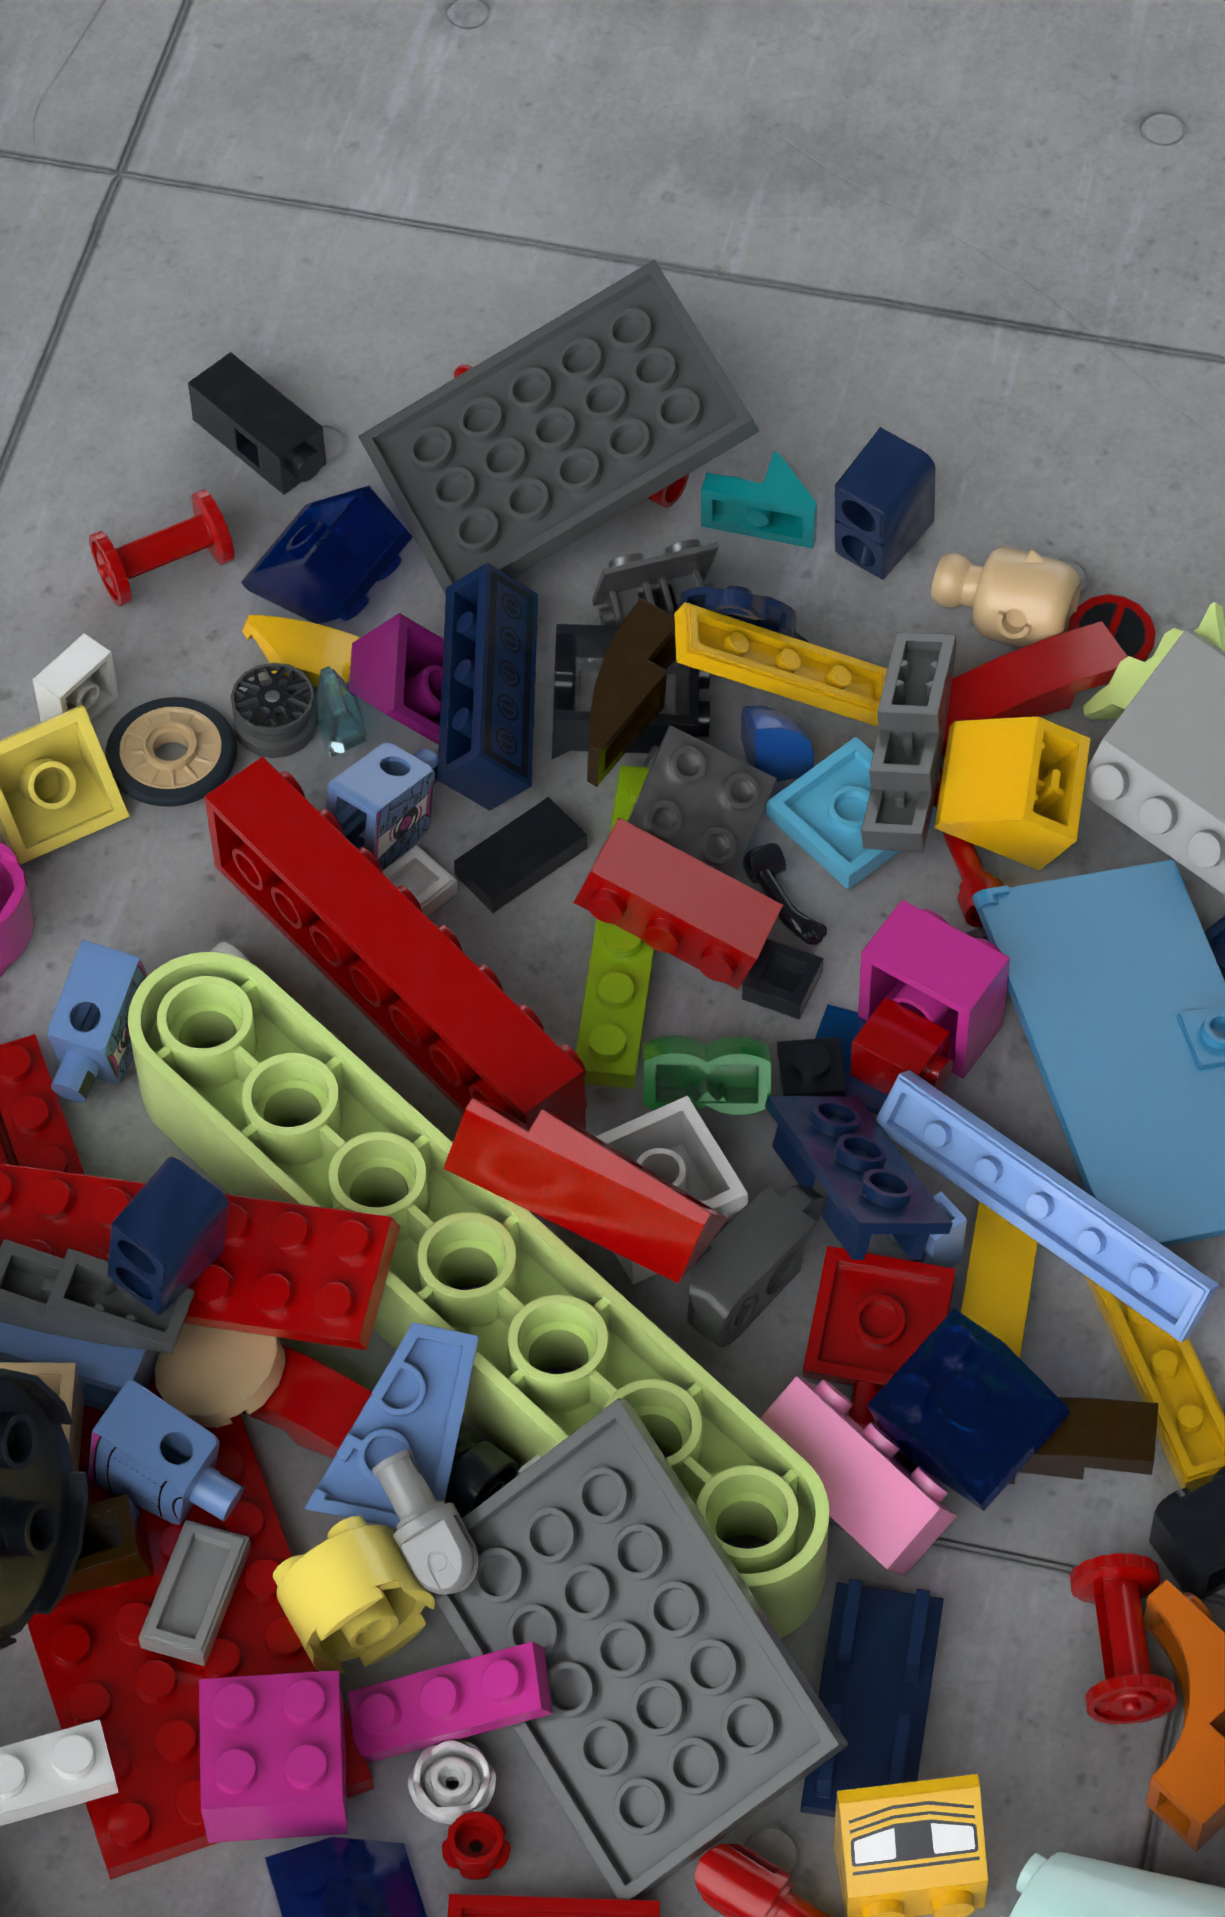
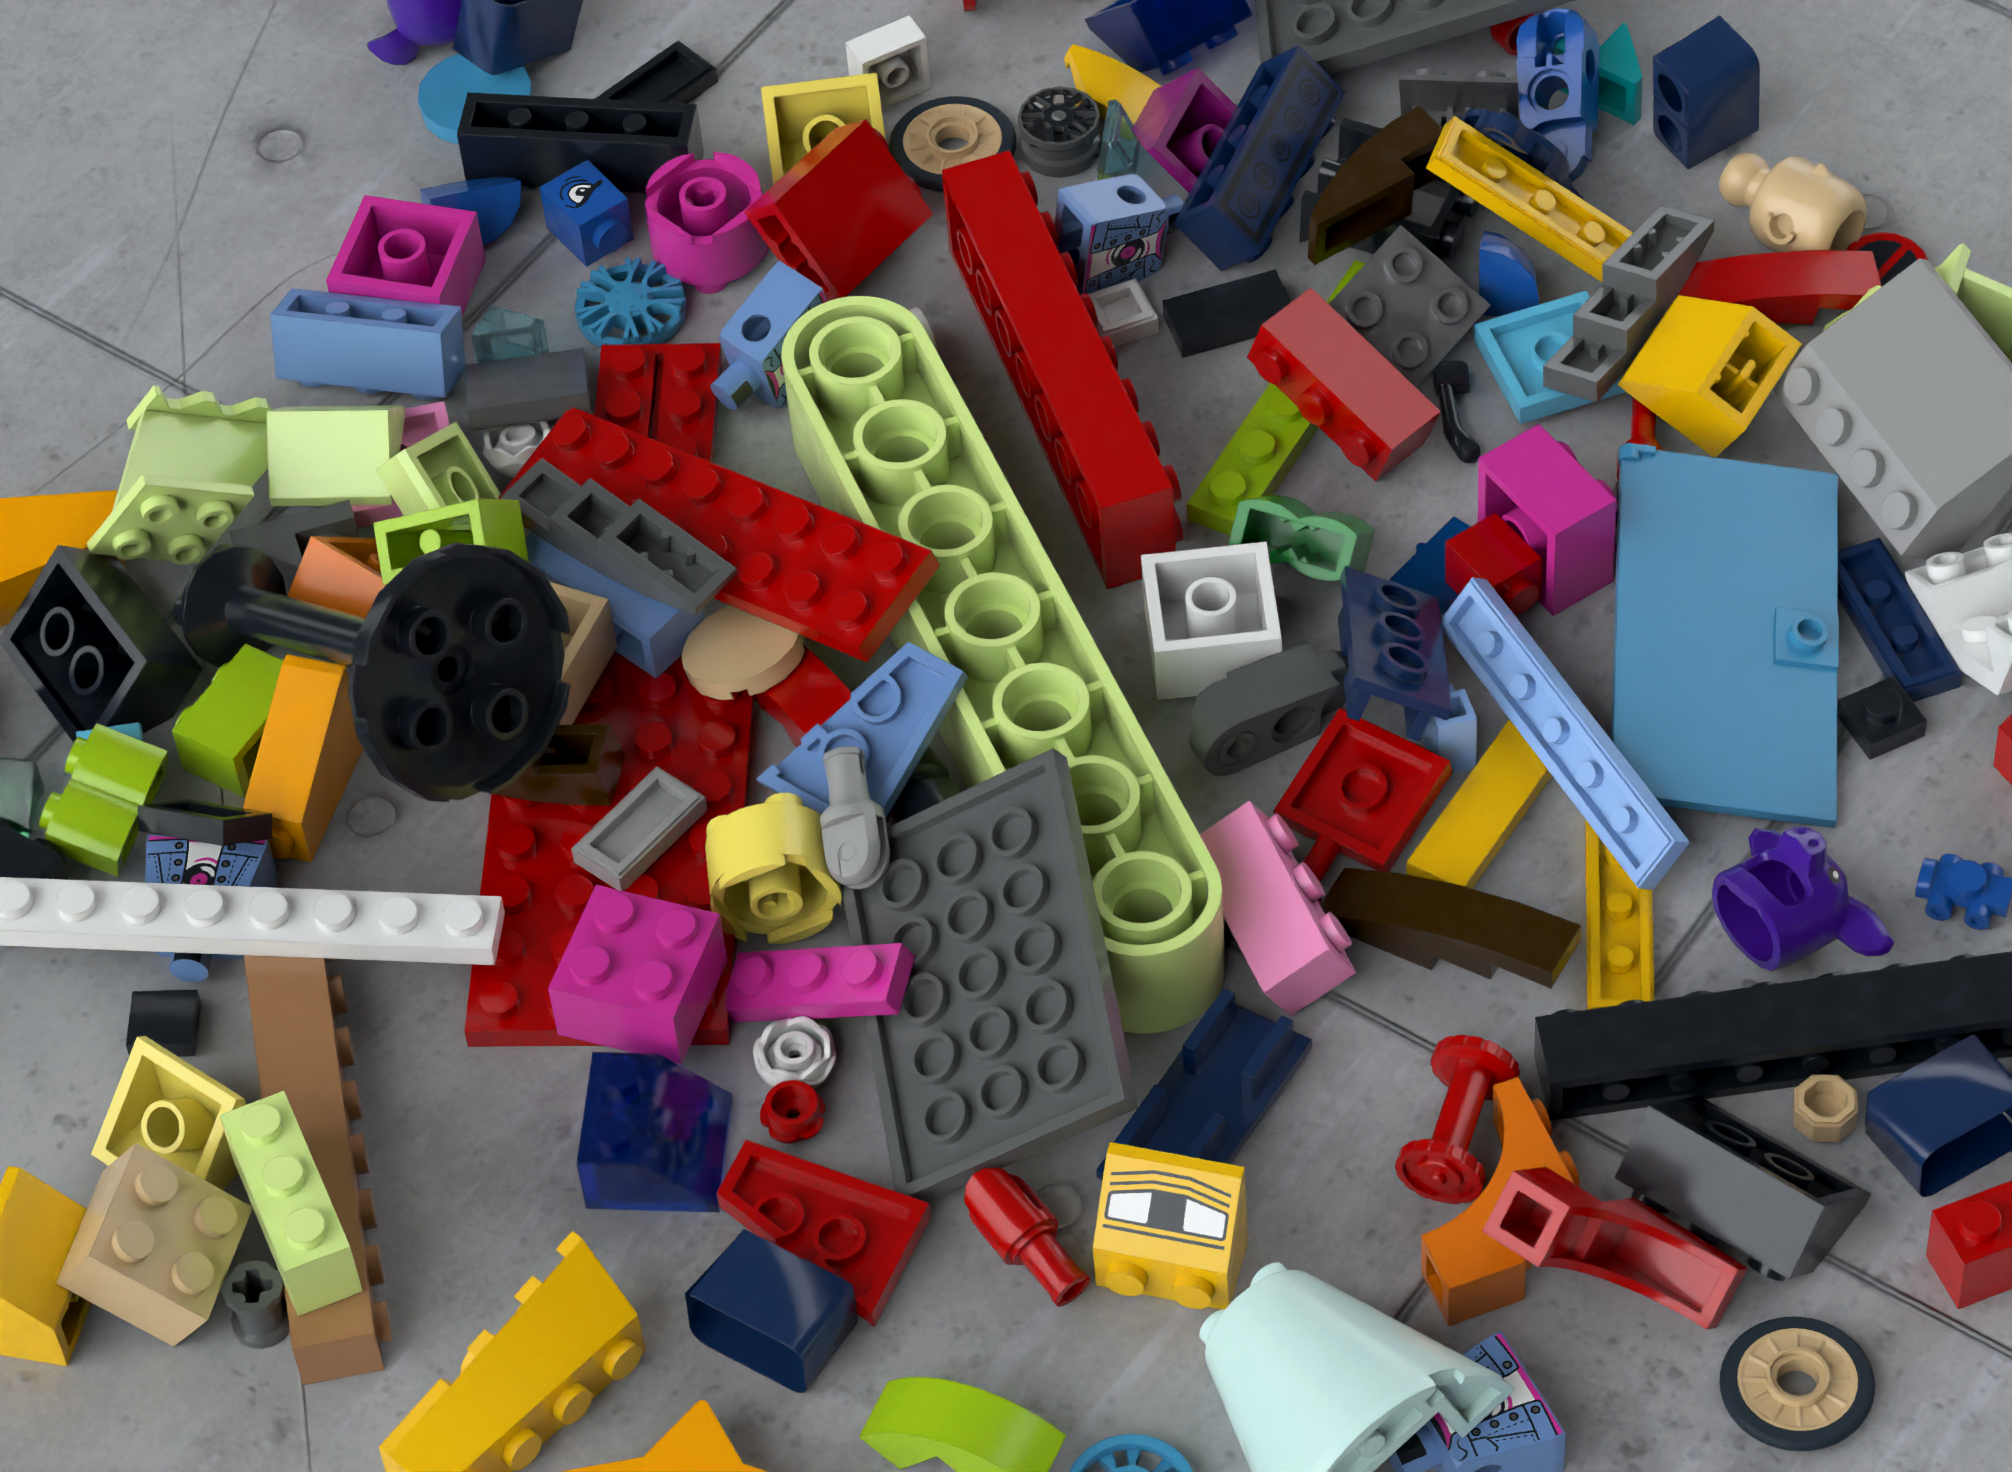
camera: 25 degrees right, 5 degrees down
(105, 861) = (840, 209): none -> red brick
(159, 1458) = (649, 701): medium blue torso -> none
(167, 1235) = (719, 503): dark blue piece -> none
(583, 1187) = (1122, 579): red slope -> none
(753, 512) = (1544, 73): none -> blue piece
(782, 979) = (1418, 480): black plate -> none
(811, 1067) = (1409, 561): black plate -> none
(967, 1409) = (1397, 876): clear blue slope -> none

